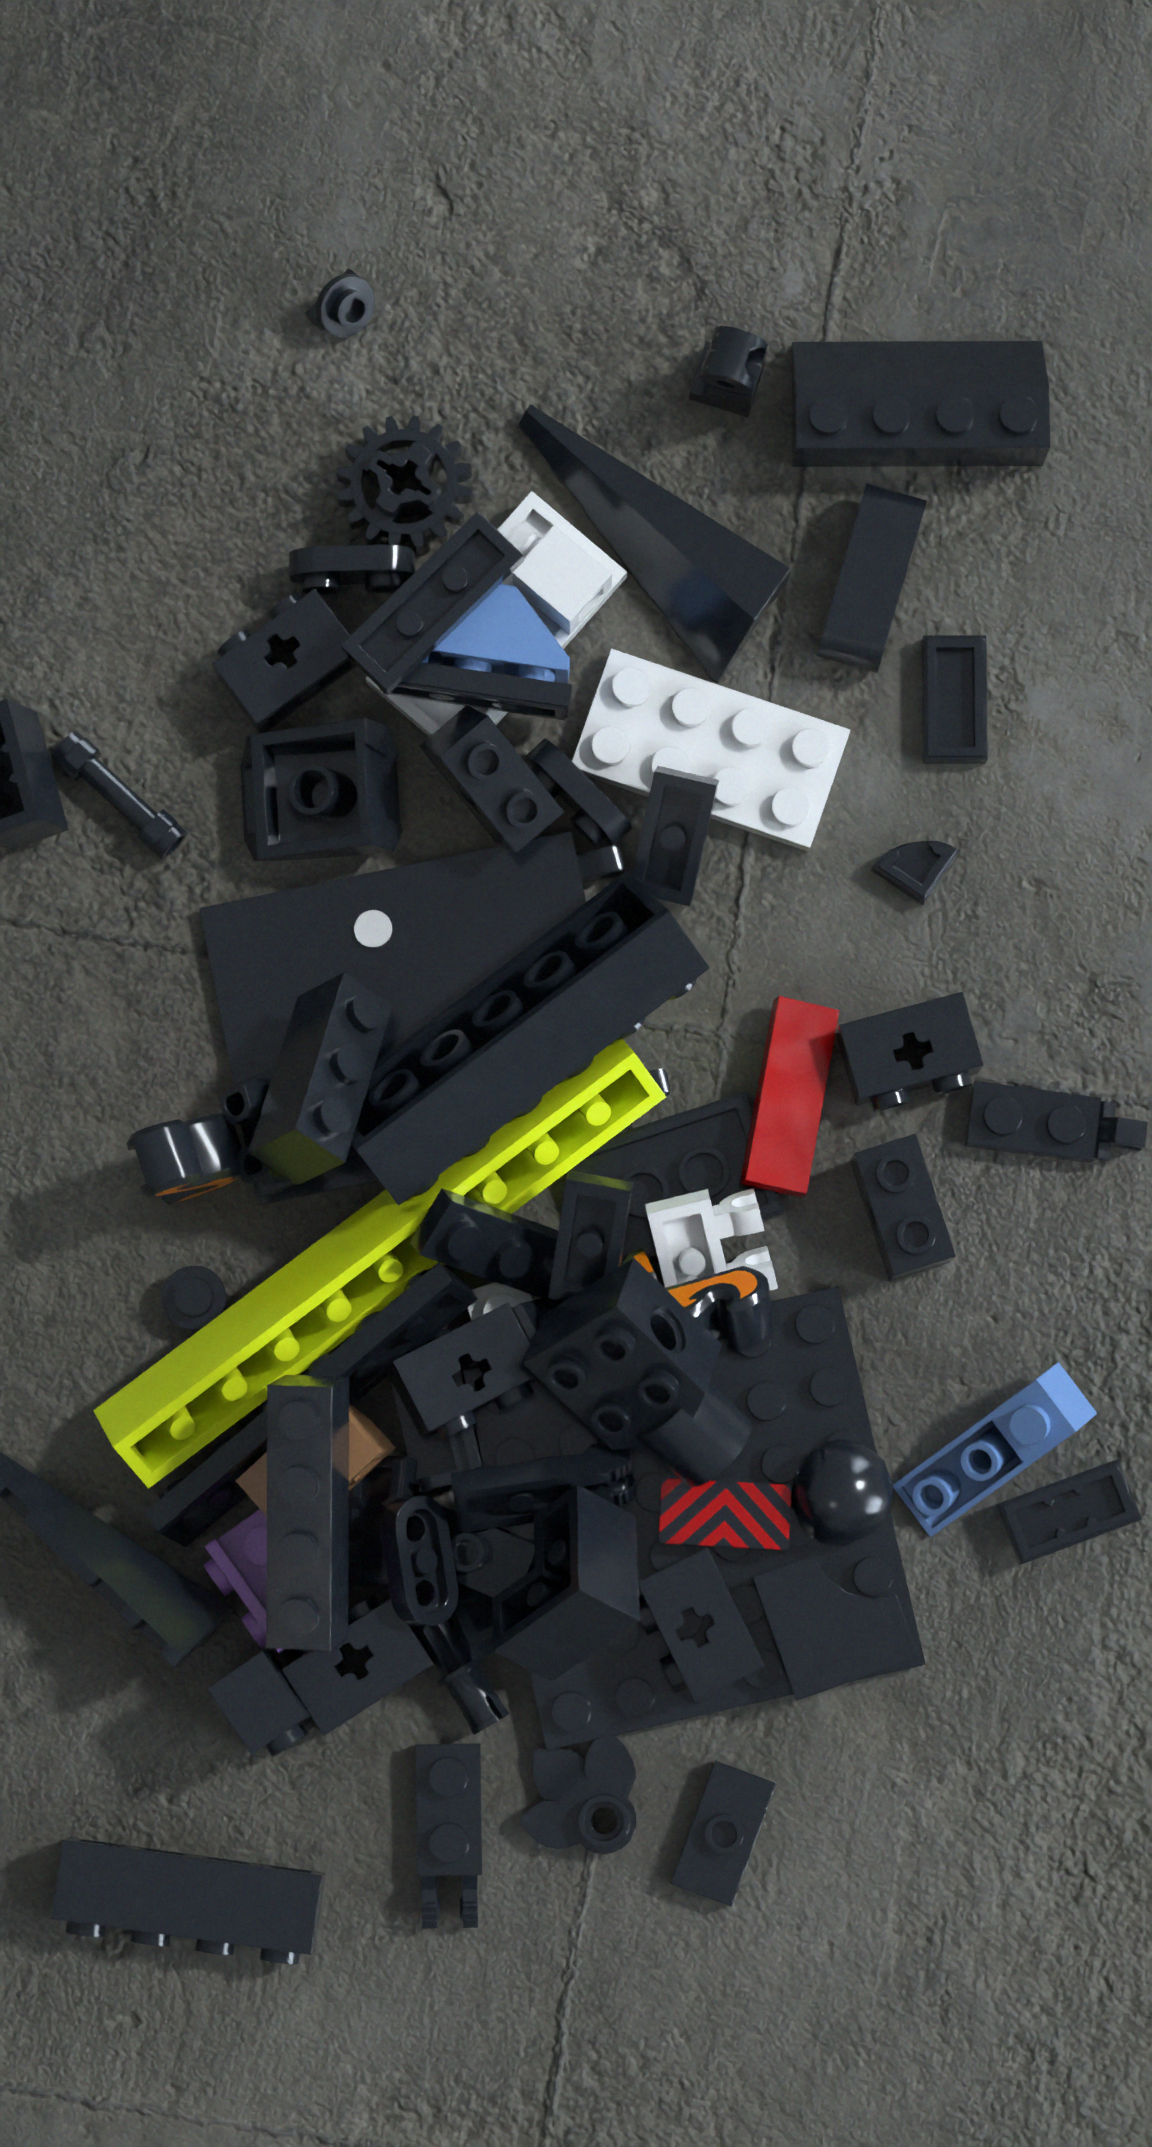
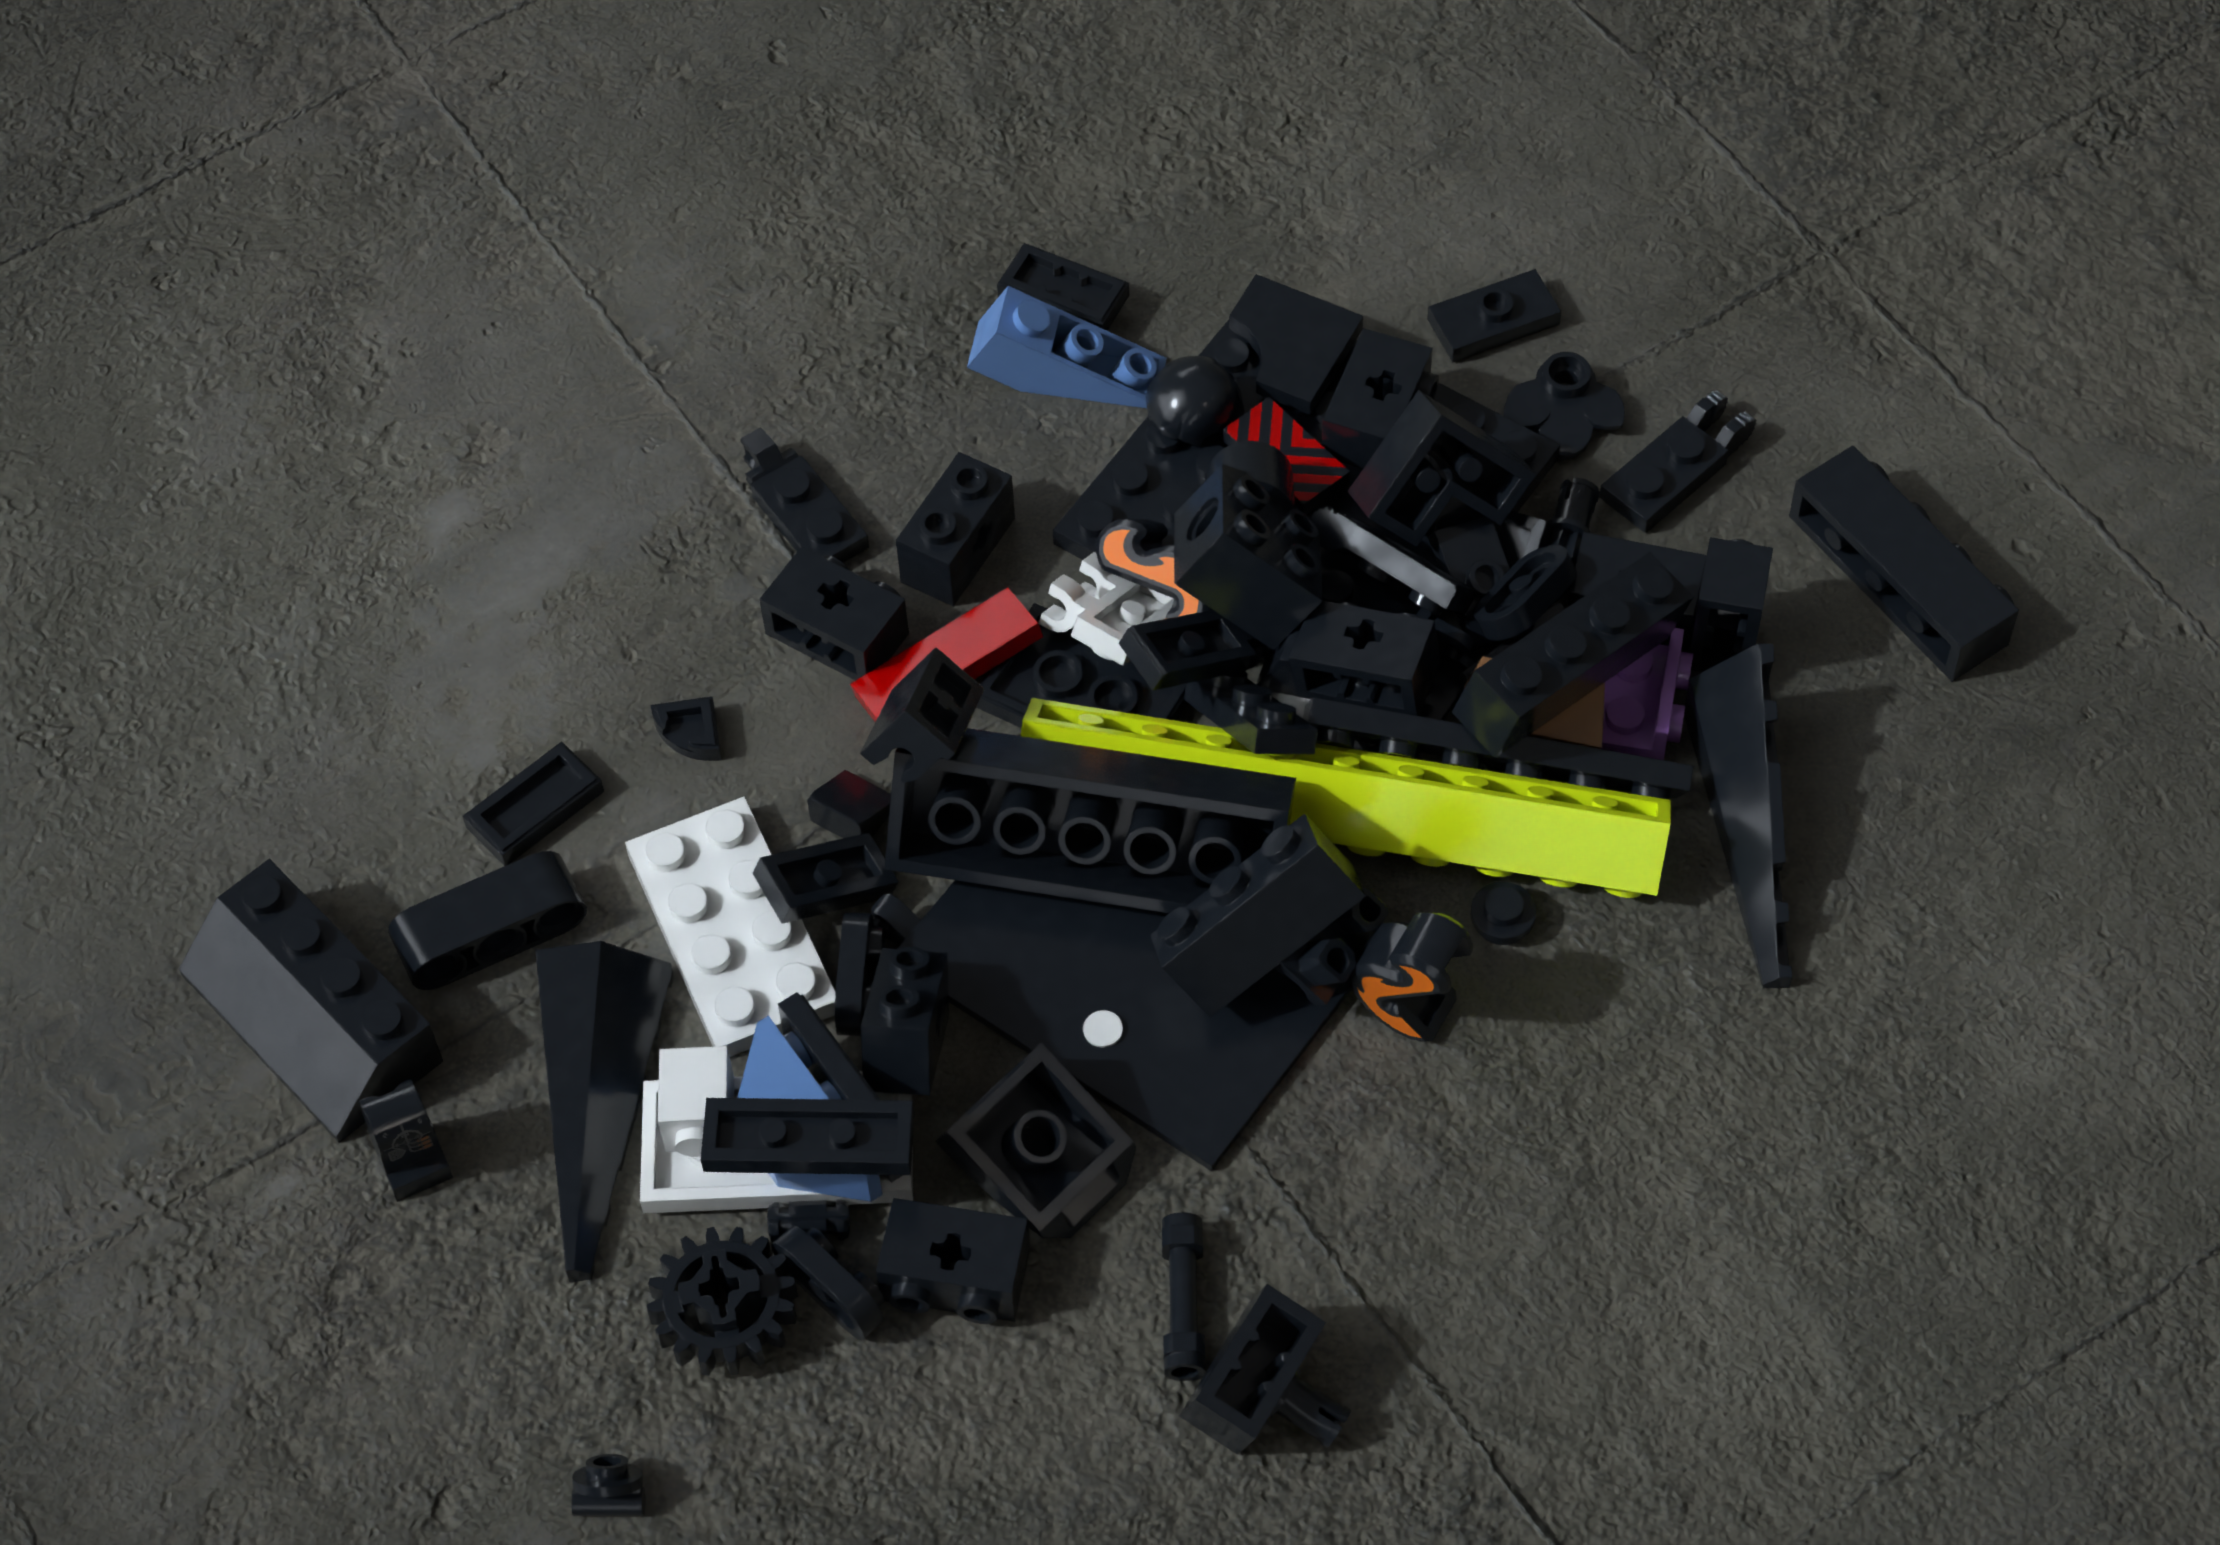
camera: 130 degrees left, 25 degrees down
(685, 964) = (925, 715): none -> black hinge
(731, 921) = (849, 806): none -> black slope

